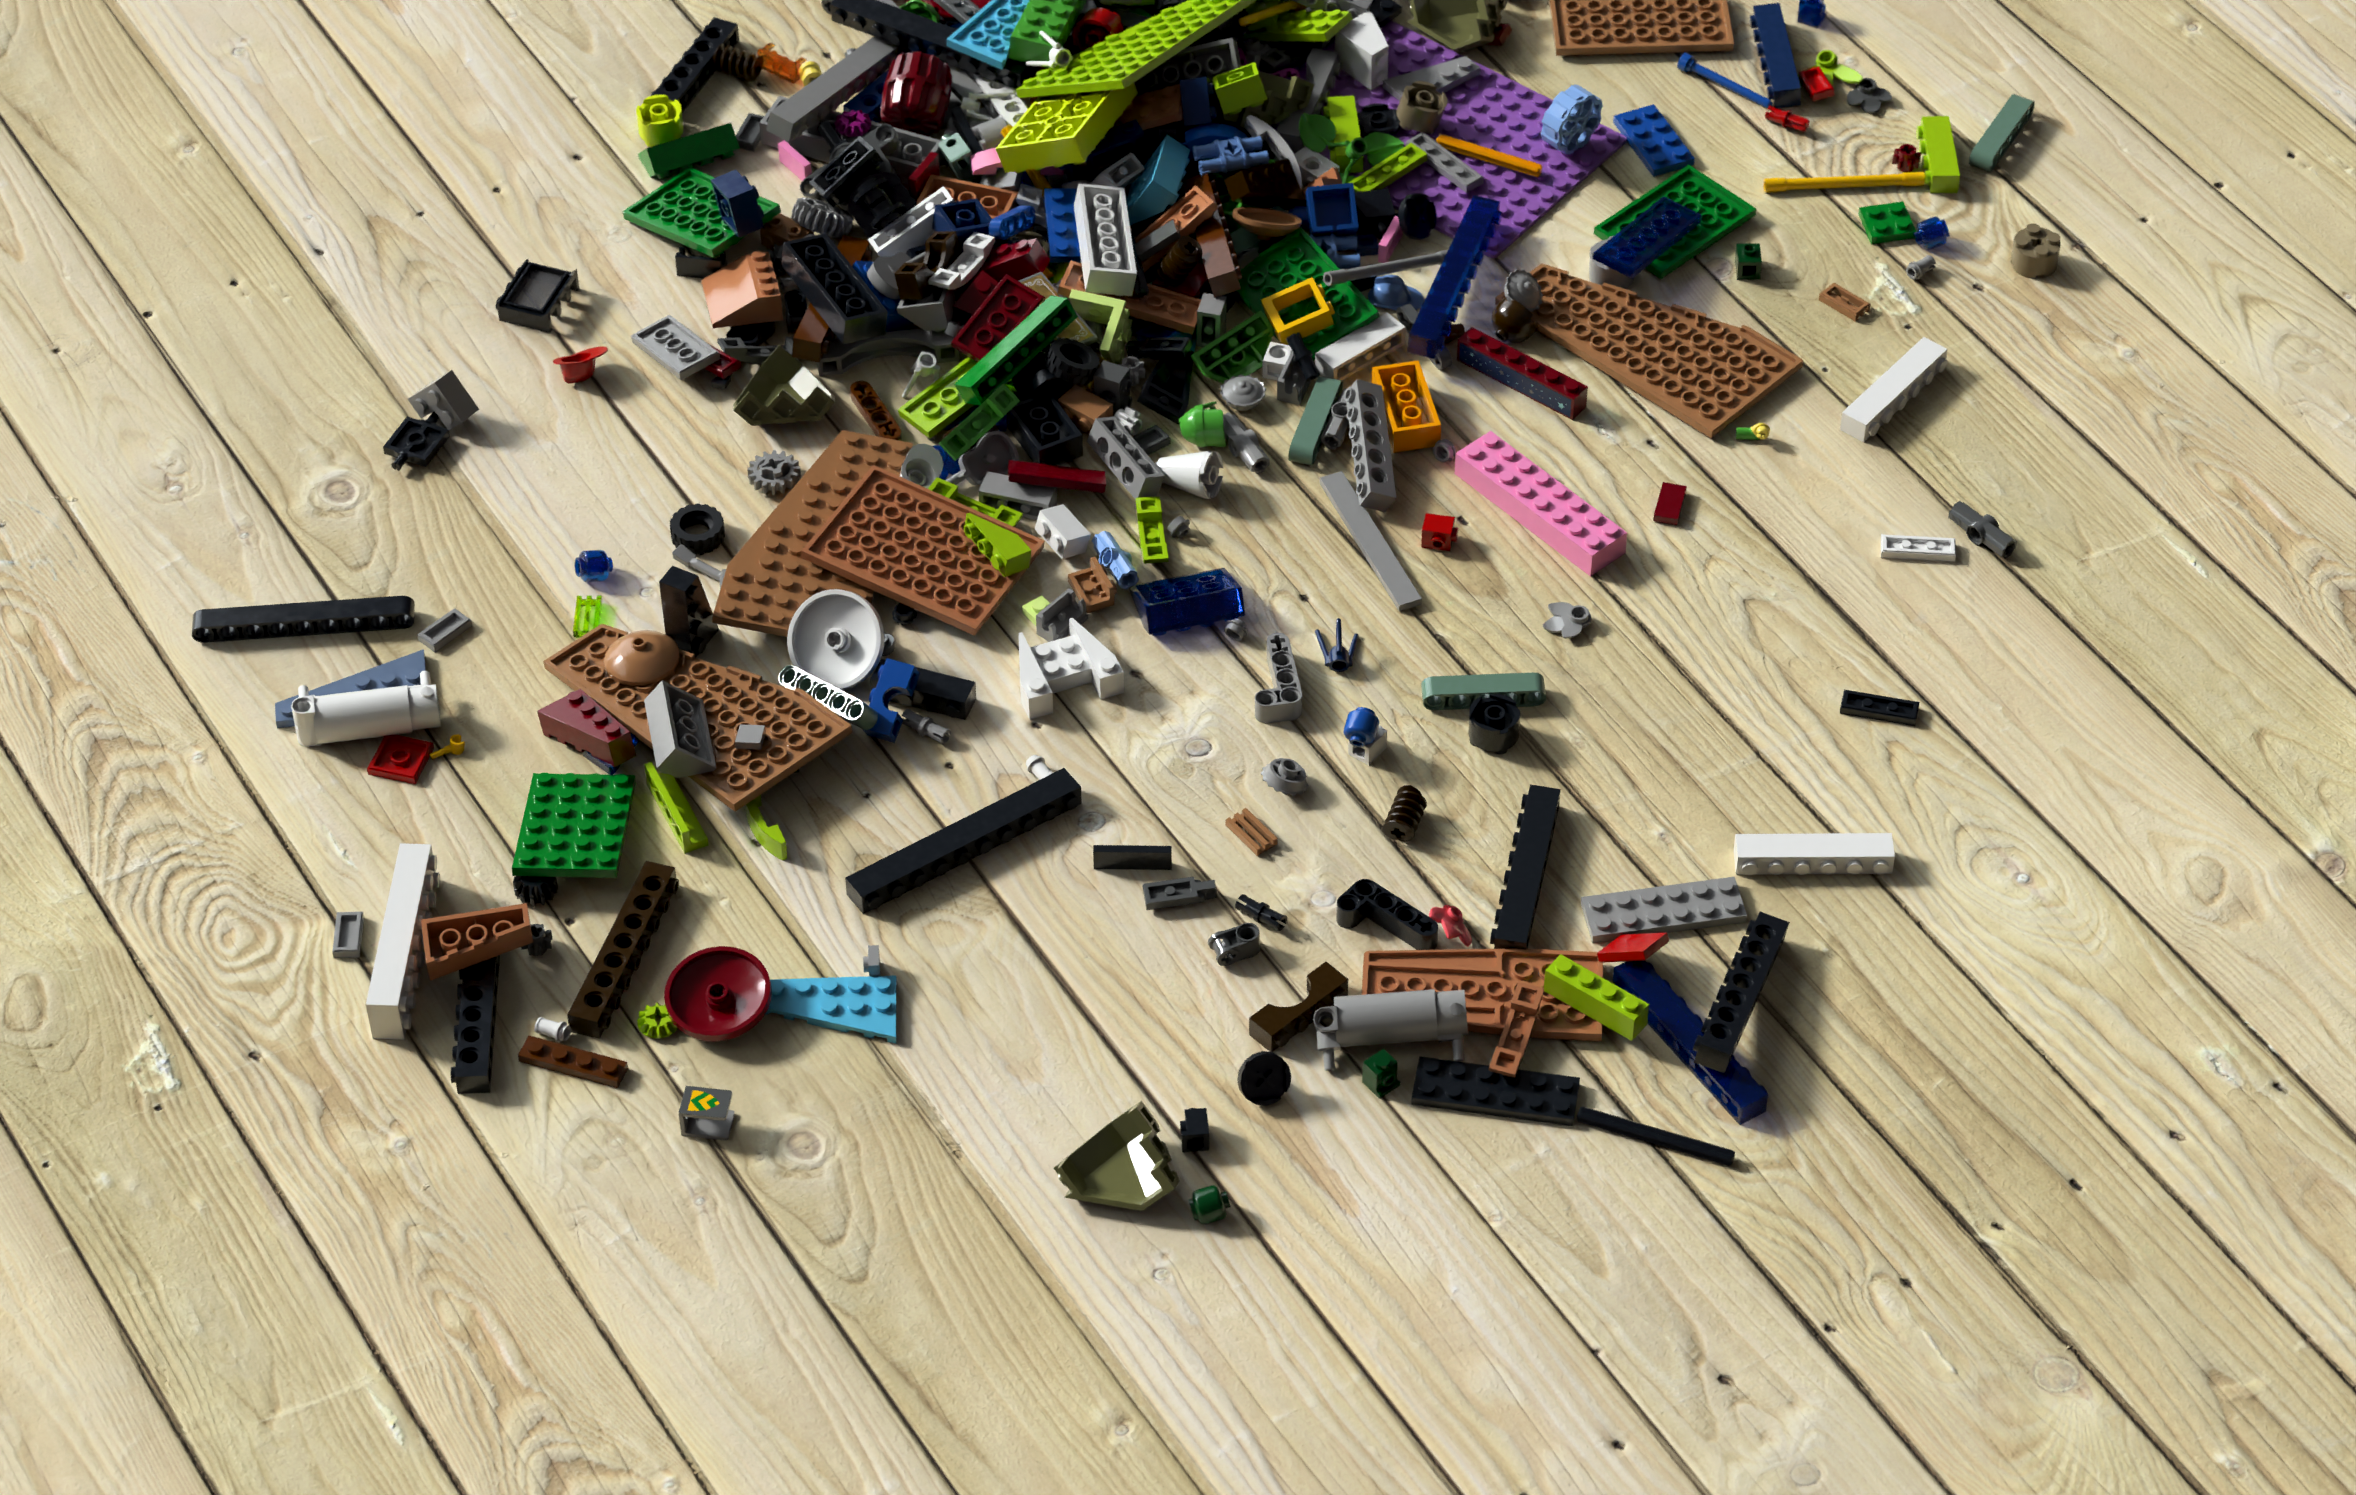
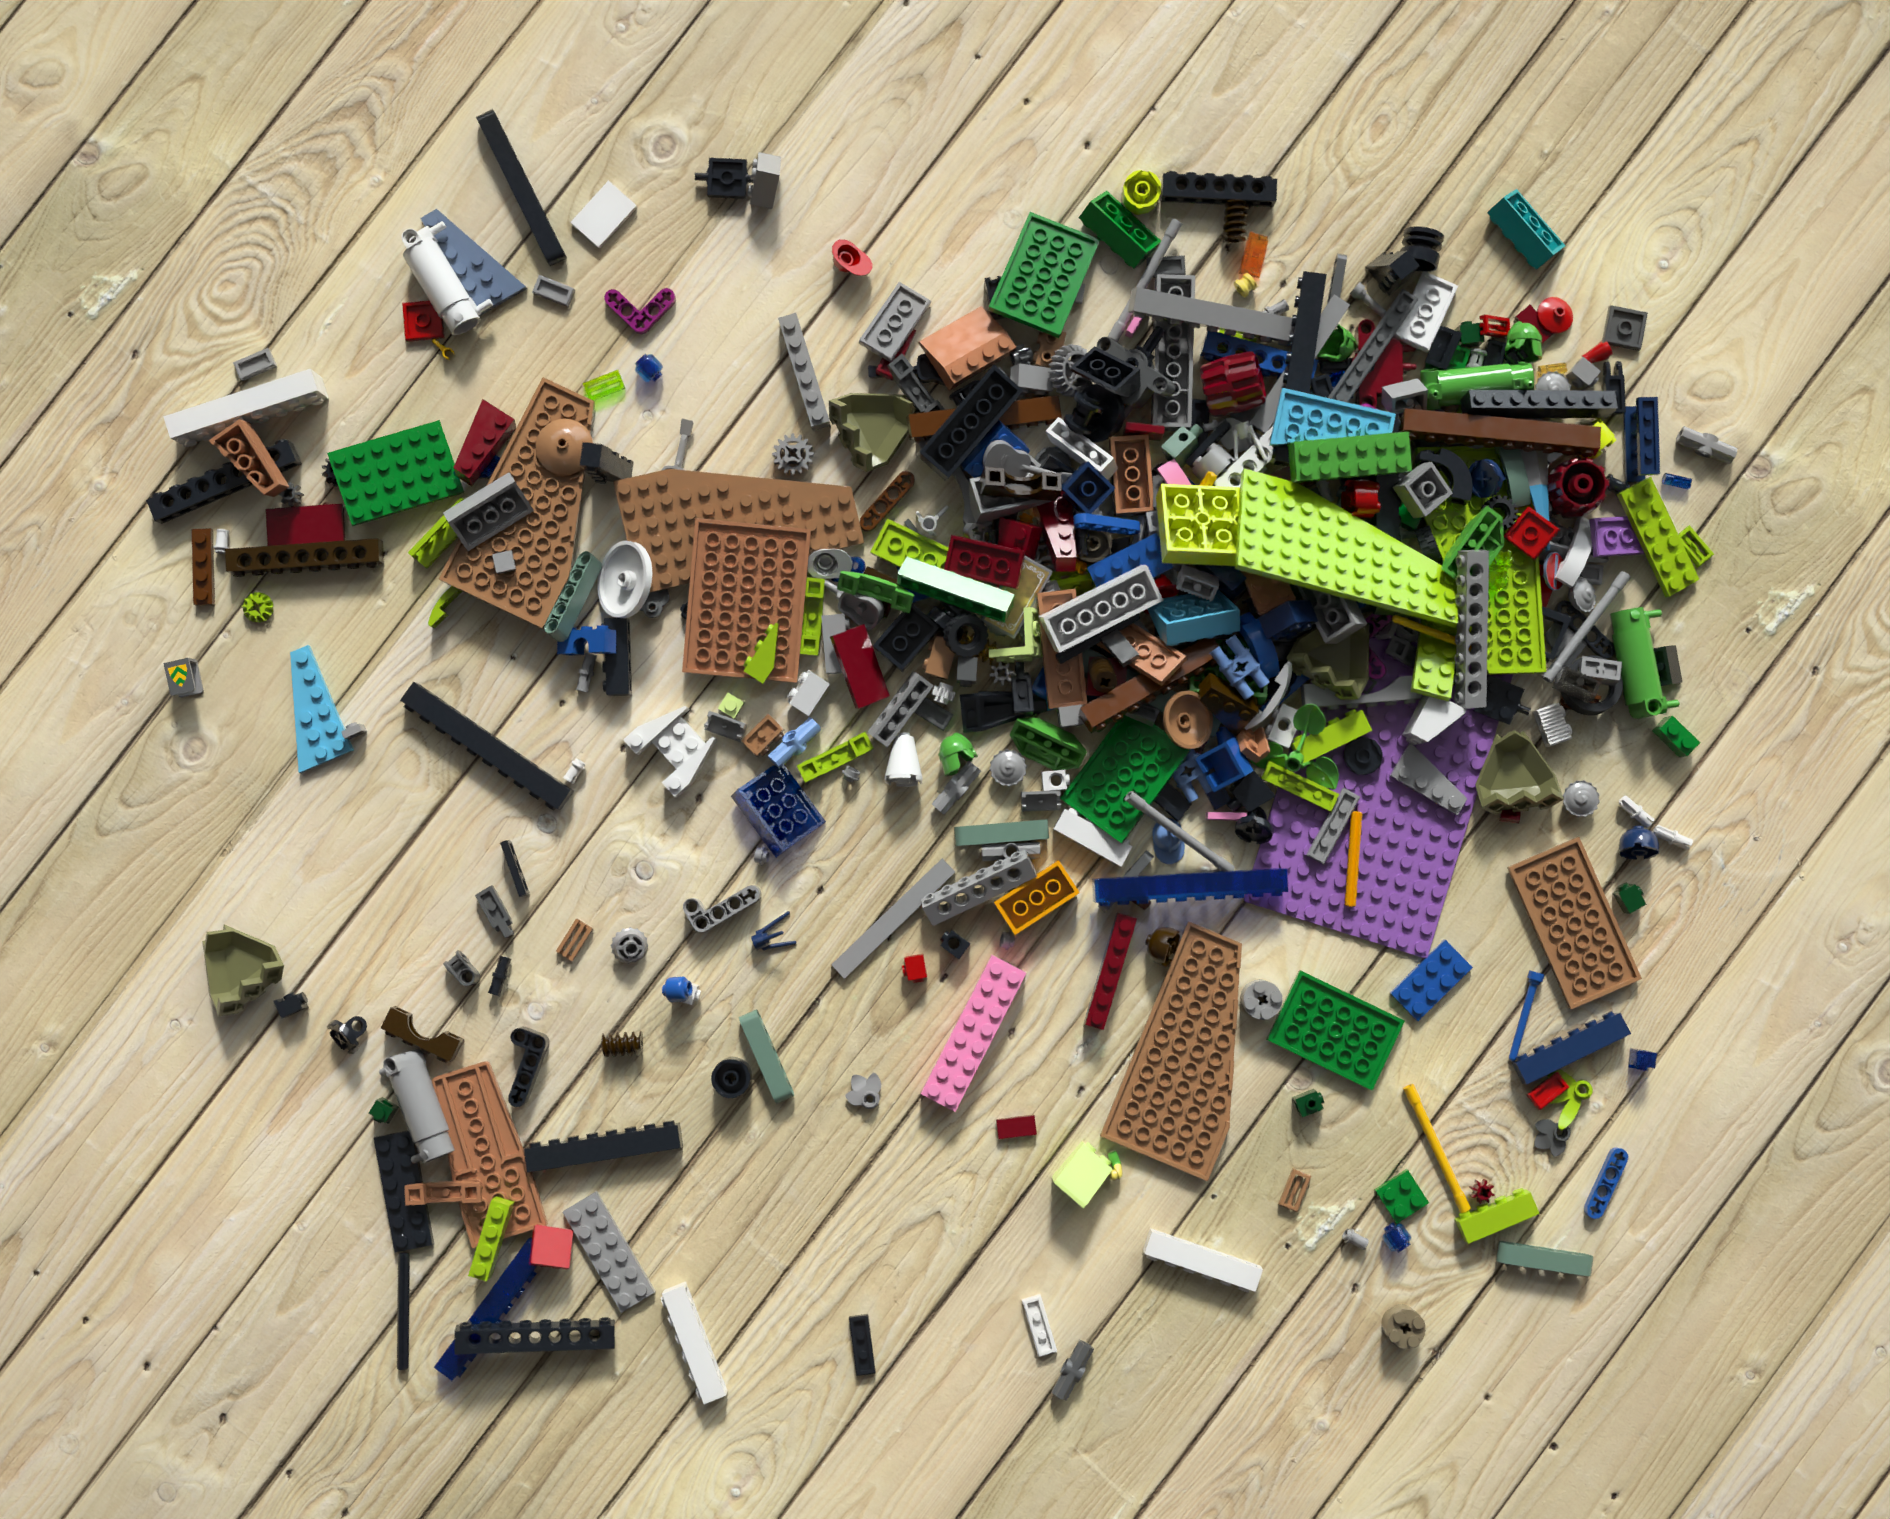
camera: 70 degrees right, 40 degrees up
(384, 560) = (603, 214): none -> white tile
(522, 563) = (638, 315): none -> magenta beam
(536, 295) = (912, 190): black window -> none
(579, 942) = (305, 524): none -> dark red tile
(684, 435) = (804, 371): none -> light grey brick
(694, 515) = (715, 410): black tyre -> none
(718, 993) = (279, 641): dark red dish -> none
(722, 111) = (1169, 236): none -> light grey piece
(738, 203) = (1032, 307): dark blue brick -> none
(855, 128) = (1174, 355): magenta gear -> none
(964, 268) = (1034, 509): white slope -> none
(1057, 55) = (1286, 490): white plant -> none
(1209, 1204) = (232, 1037): dark green head -> none
(1240, 89) = (1309, 648): lime brick -> none
(1303, 356) = (1051, 803): black pin -> none
(1306, 325) = (1085, 767): yellow window -> none
(1421, 107) = (1389, 792): dark tan brick -> none
(1427, 492) = (959, 951): none -> black brick
(1452, 922) = (533, 1111): coral plate -> none
(1524, 289) = (1190, 945): light grey piece -> none
(1571, 119) = (1402, 917): light blue connector -> none
(1647, 237) = (1290, 1021): clear blue tile -> none
(1751, 457) = (1082, 1173): none -> yellowish green slope
(1787, 119) = (1495, 1080): red axle -> none
(1916, 58) = (1610, 1184): none -> blue beam

